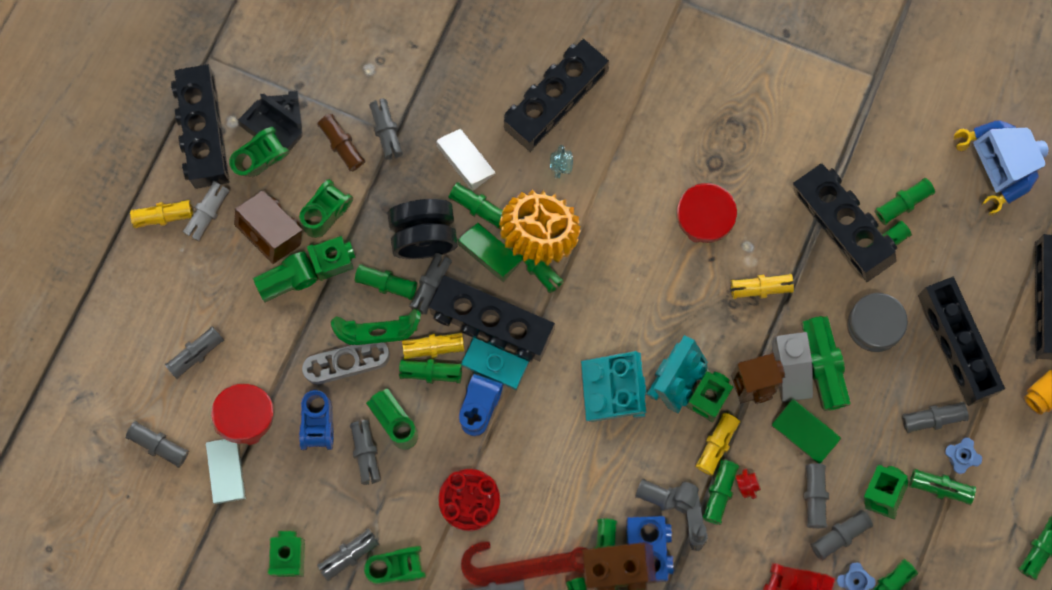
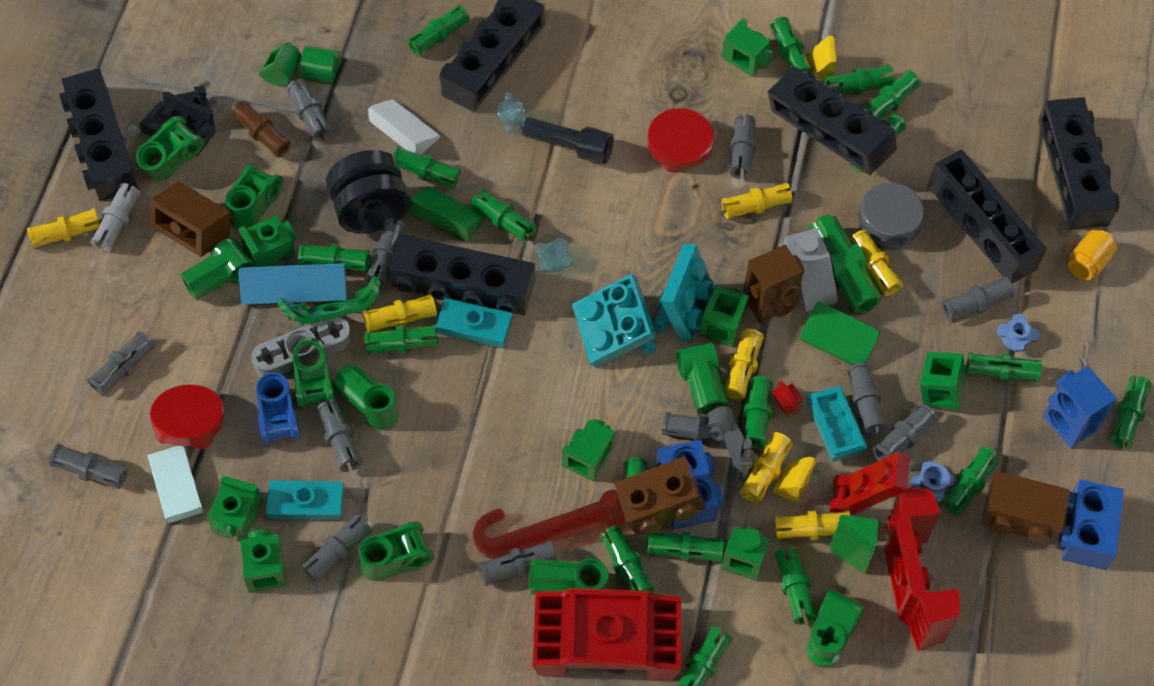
camera: 15 degrees left, 15 degrees down
(280, 500) = (238, 521): none -> green brick
(329, 504) = (305, 500): none -> teal plate
(347, 302) = (293, 283): none -> dark azure tile
(350, 396) = (312, 375): none -> green piece
(367, 80) = (280, 64): none -> green brick
(401, 83) = (319, 64): none -> green brick
(469, 500) = (470, 468): red tile -> none
(481, 400) = (464, 365): blue piece -> none
(511, 65) = (438, 30): none -> green pin
(542, 221) = (499, 173): light orange gear -> none
(568, 317) = (553, 264): none -> clear light blue plate
(571, 501) = (589, 449): none -> green brick
(623, 205) = (589, 143): none -> black piece
(679, 442) = (701, 368): none -> green piece
(717, 544) = (766, 468): none -> yellow pin
(738, 559) = (794, 479): none -> yellow slope
(760, 230) = (743, 146): none -> dark grey pin
(785, 130) = (746, 48): none -> green brick
(785, 514) = (836, 423): none -> teal plate
(825, 134) = (789, 45): none -> green pin
(850, 152) = (823, 58): none -> yellow slope
(854, 366) = (877, 263): none -> yellow pin
(880, 178) = (861, 79): none -> green pin
(996, 541) = (1079, 406): none -> blue brick
(1008, 157) = (990, 39): light blue torso -> none

